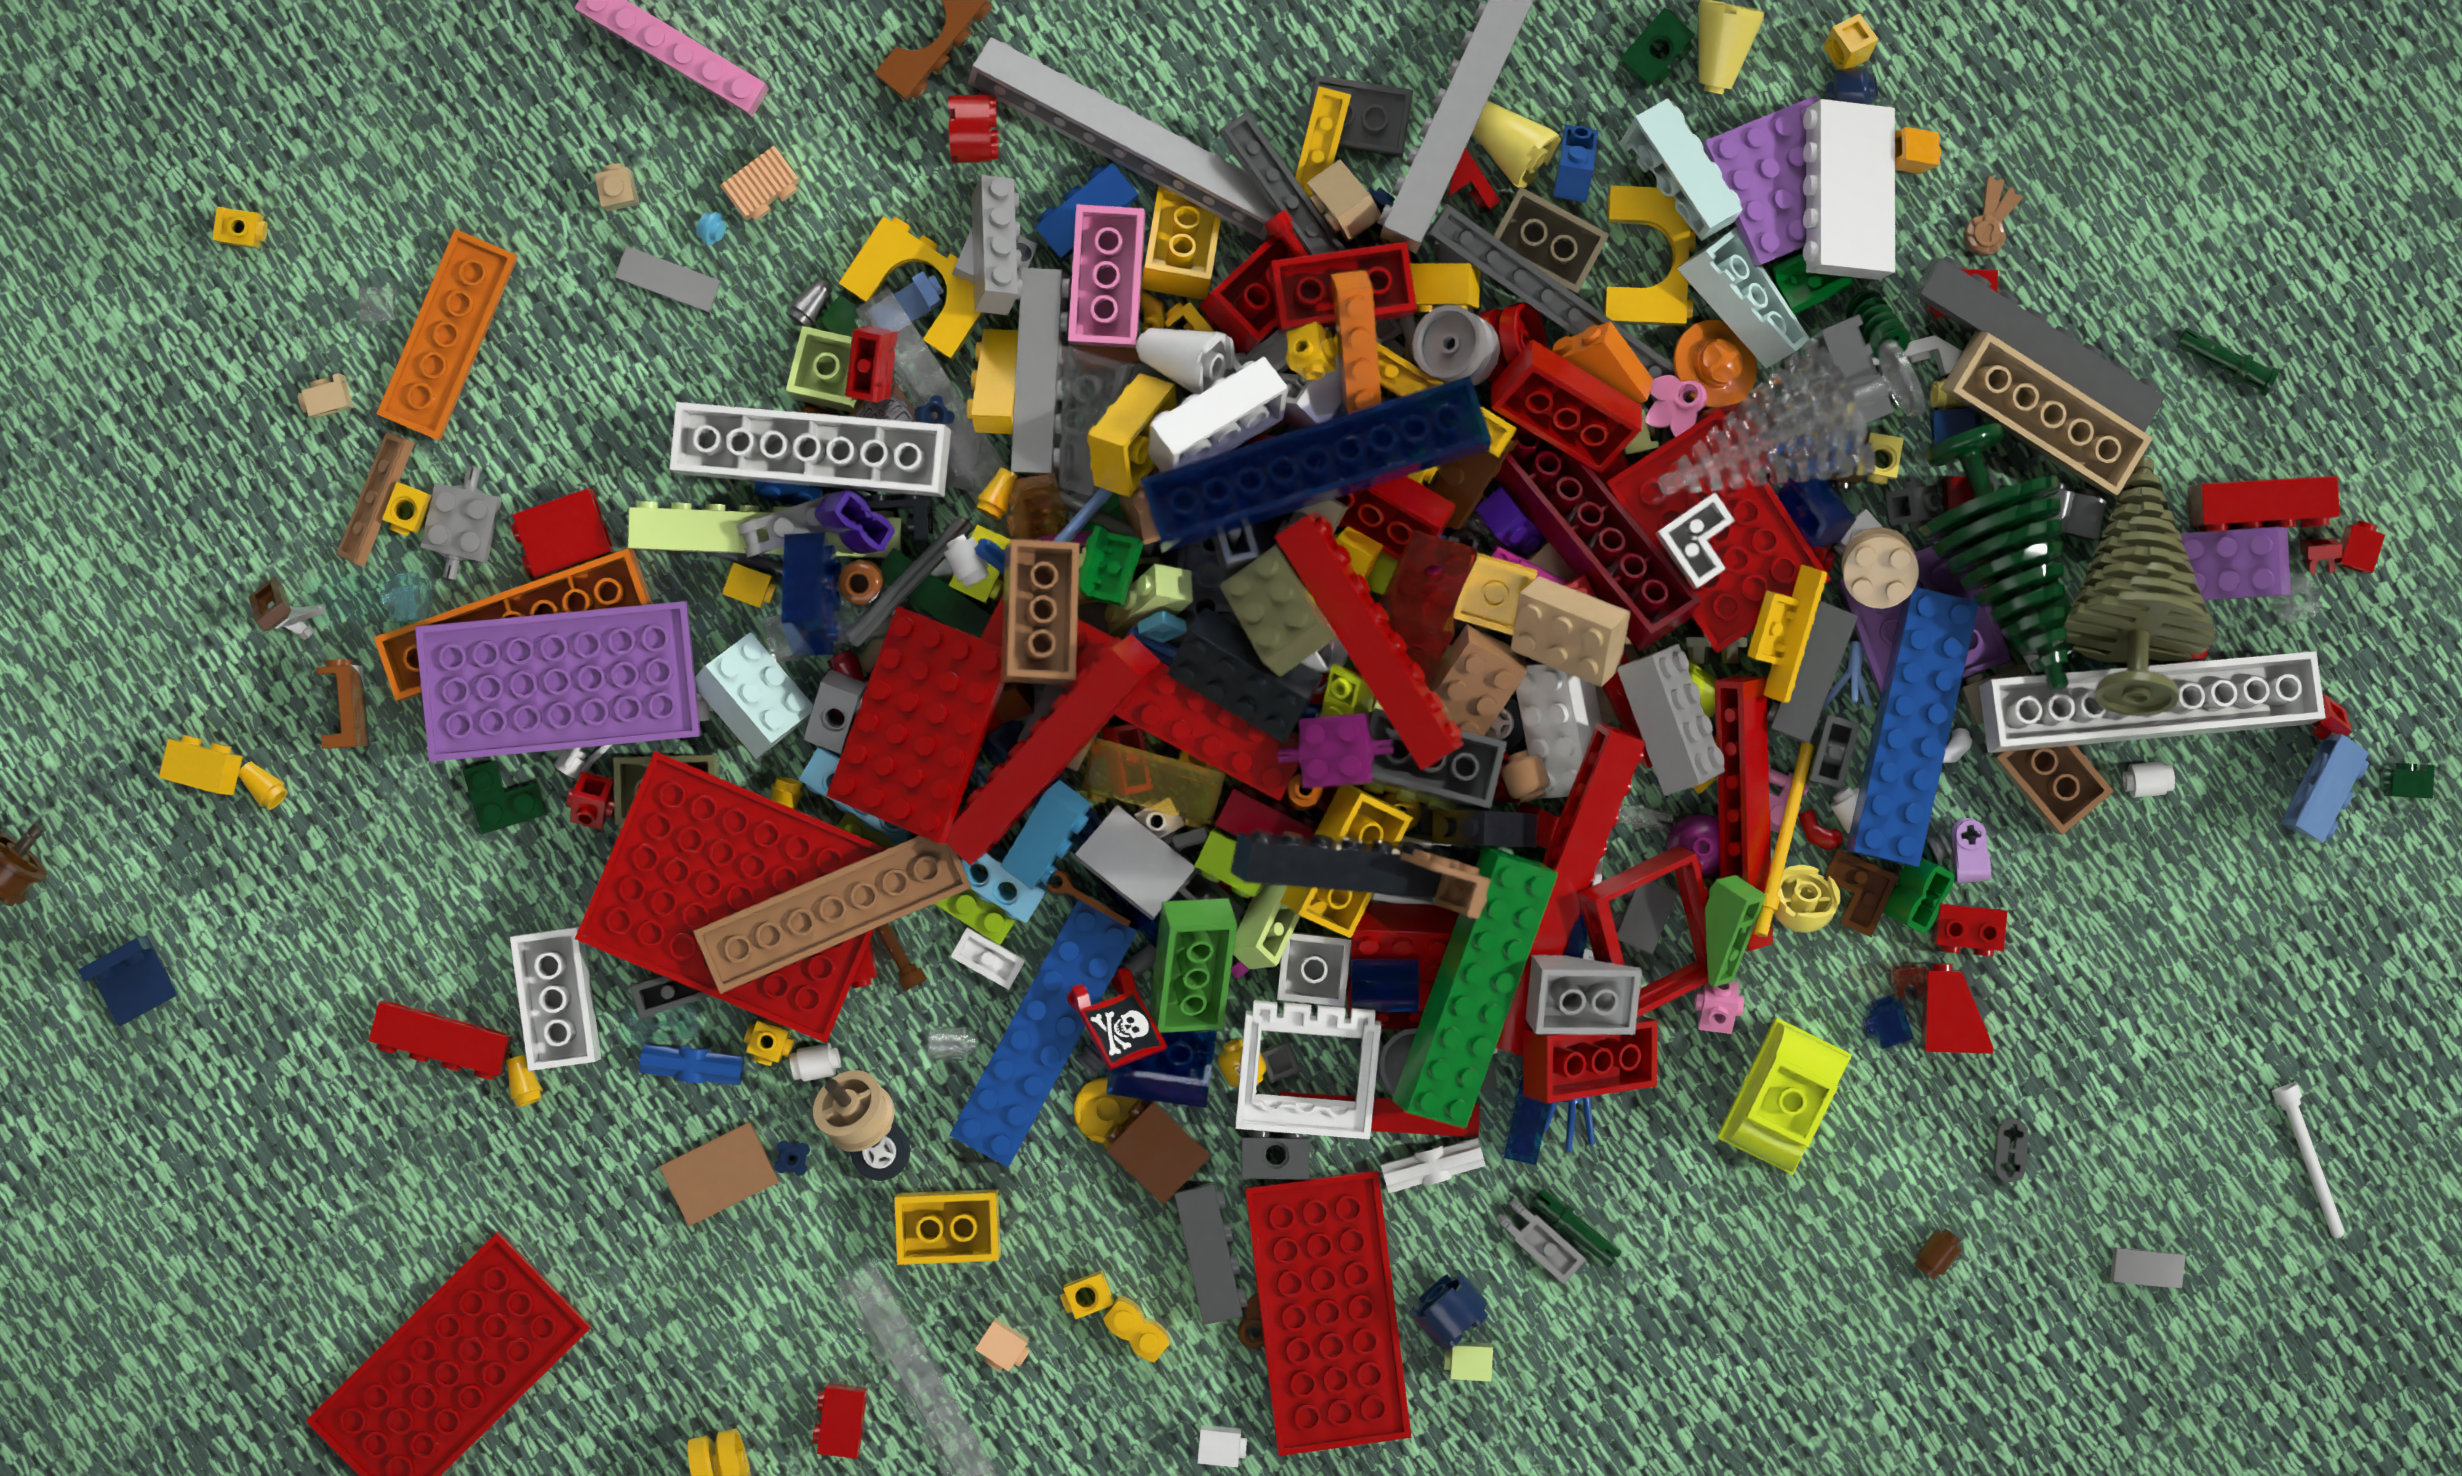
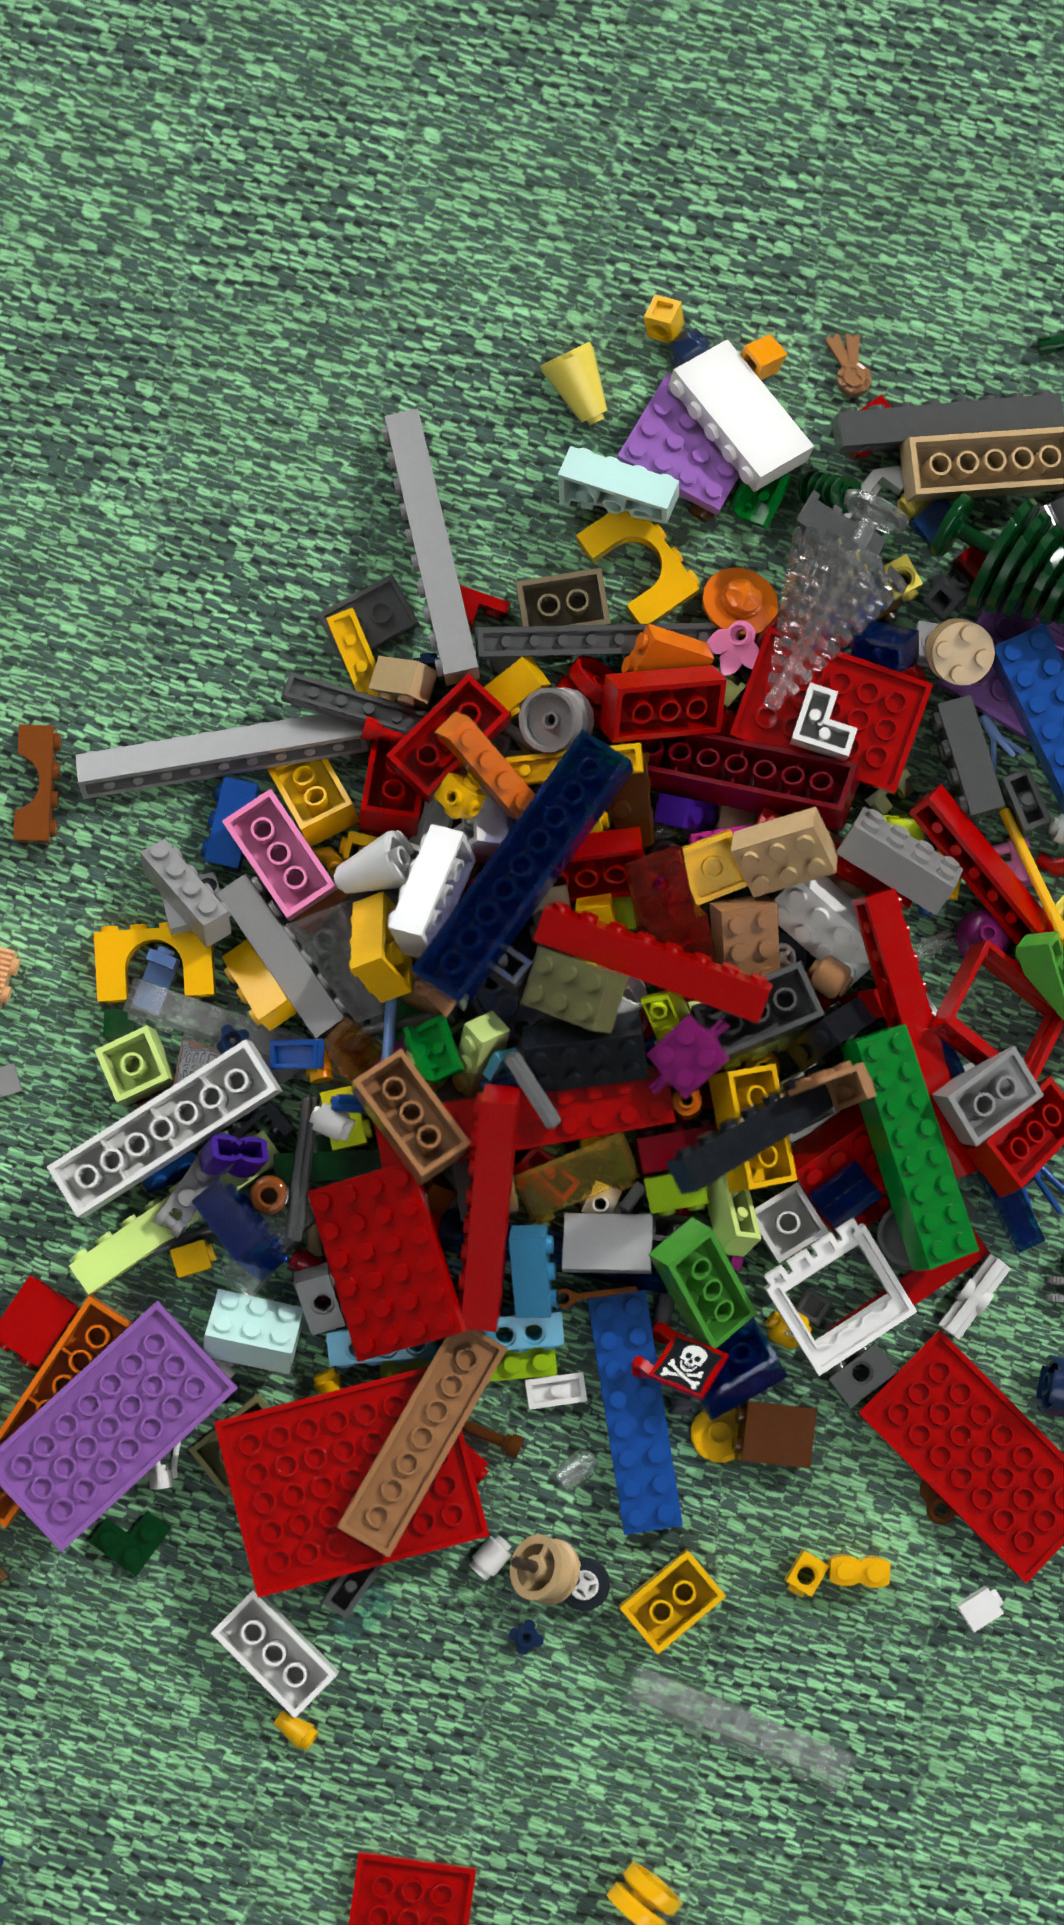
camera: 40 degrees left, 5 degrees down
(440, 1038) = (215, 1744): red brick -> none
(591, 800) = (195, 1493): red brick -> none
(691, 1064) = (405, 1625): blue piece -> none
(719, 1173) = (483, 1688): medium nougat tile -> none
(781, 1038) = (458, 1560): yellow brick -> none
(808, 305) = (87, 1033): flat silver cone -> none
(841, 1420) = (702, 1796): red brick -> none
(871, 363) = (162, 1037): red brick -> none
(971, 130) = (109, 827): red brick -> none
(983, 473) = (297, 1054): none -> blue tile
(1002, 1346) = (775, 1656): light nougat brick -> none
(1170, 673) = (532, 1090): none -> dark grey axle
(1209, 1253) = (868, 1478): dark grey brick -> none
(1515, 143) = (489, 555): light yellow cone -> none
(1575, 163) = (540, 539): blue slope -> none
(1644, 915) = (985, 1010): dark grey brick -> none
(1664, 30) = (533, 405): dark green brick -> none
(1745, 298) = (726, 541): light aqua wedge -> none
(1784, 631) = (930, 741): yellow bracket -> none

